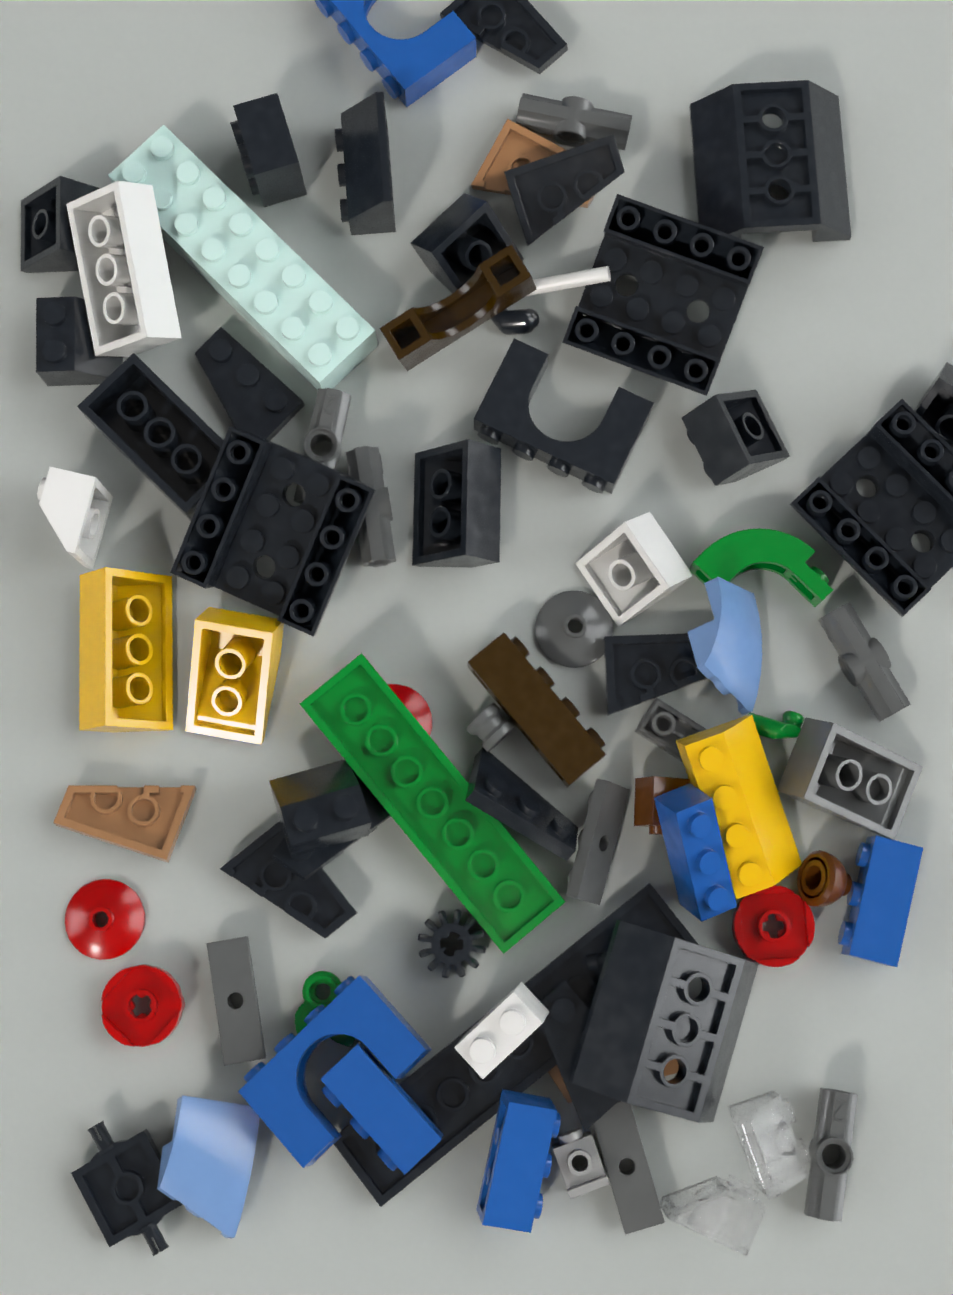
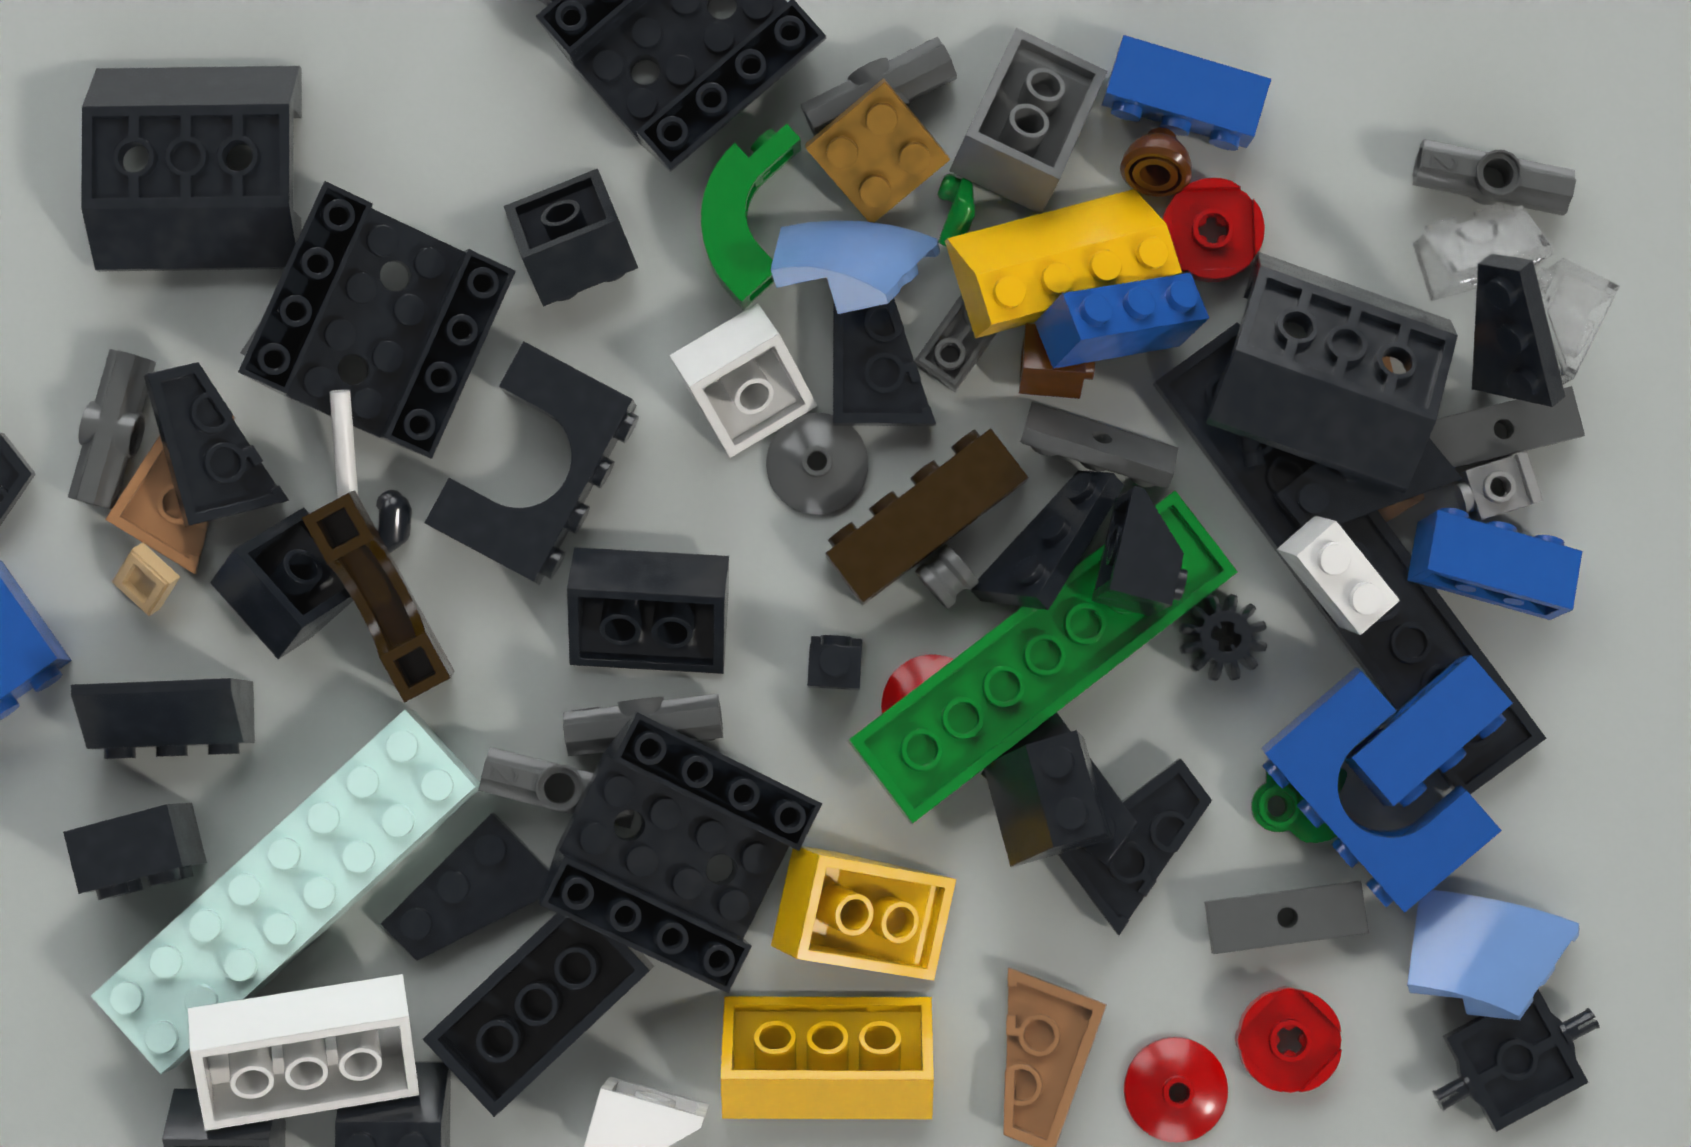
camera: 90 degrees left, 5 degrees up
(421, 645) = (834, 662): none -> black brick
(465, 150) = (145, 579): none -> tan tile
(506, 869) = (1139, 559): none -> black slope
(702, 1167) = (1512, 334): none -> black wing
(816, 661) = (877, 151): none -> pearl gold plate

